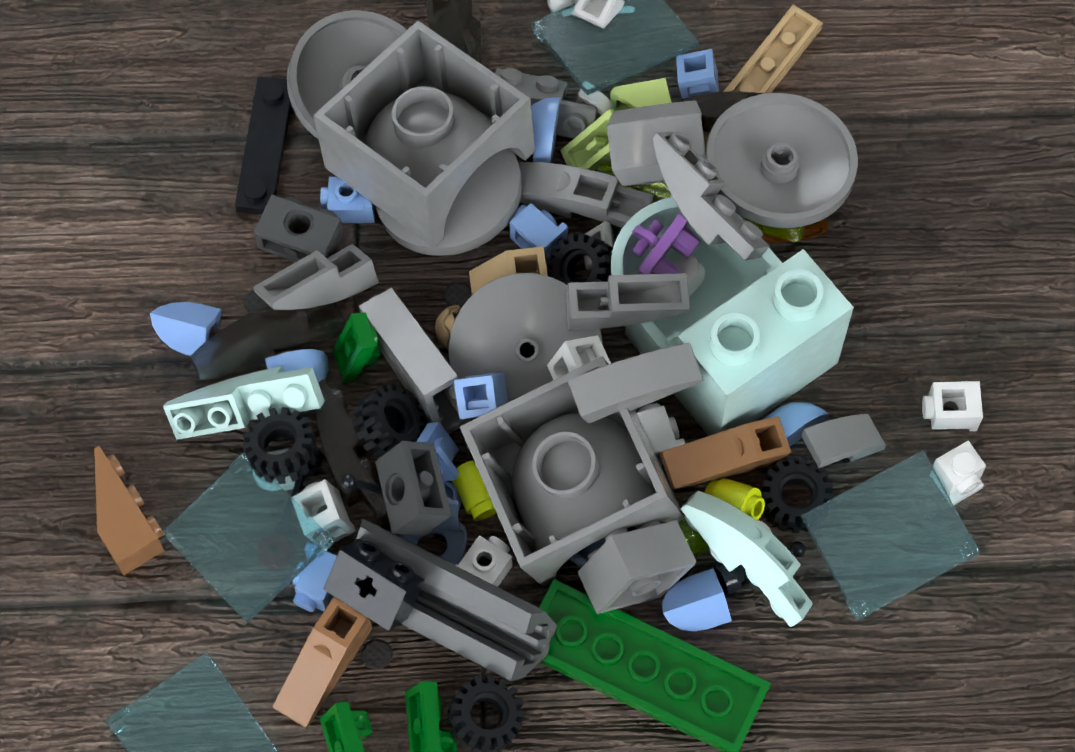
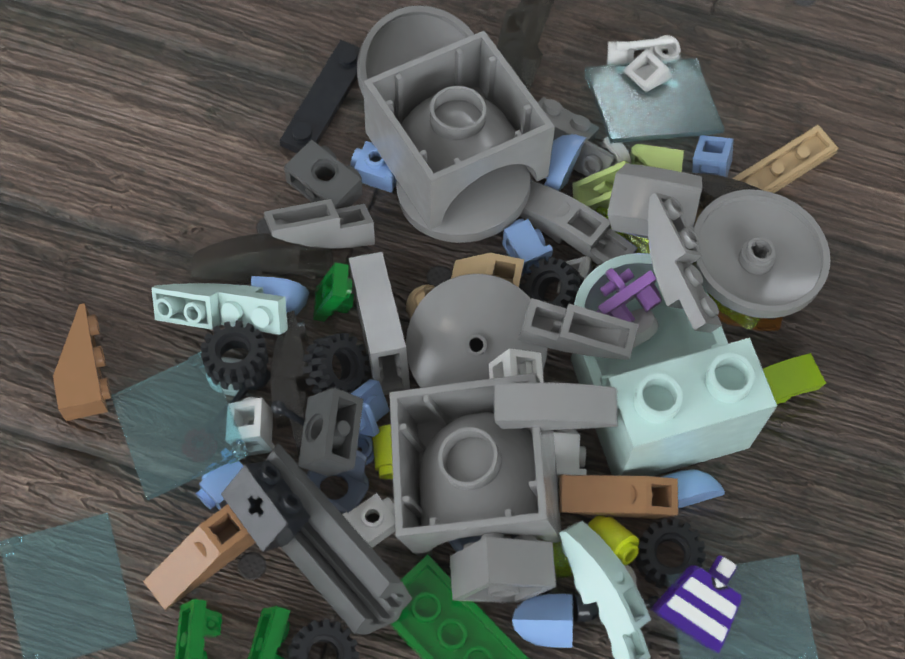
camera: 15 degrees right, 0 degrees up
(185, 324) = (199, 225): light blue brick -> none
(480, 394) = (420, 369): light blue brick -> none
(842, 438) = (729, 518): light grey slope -> none
(845, 530) = (702, 603): none -> dark purple torso
(859, 274) = (793, 377): none -> lime slope
(960, 472) = (825, 585): white brick -> none
(962, 397) = (850, 517): white brick -> none

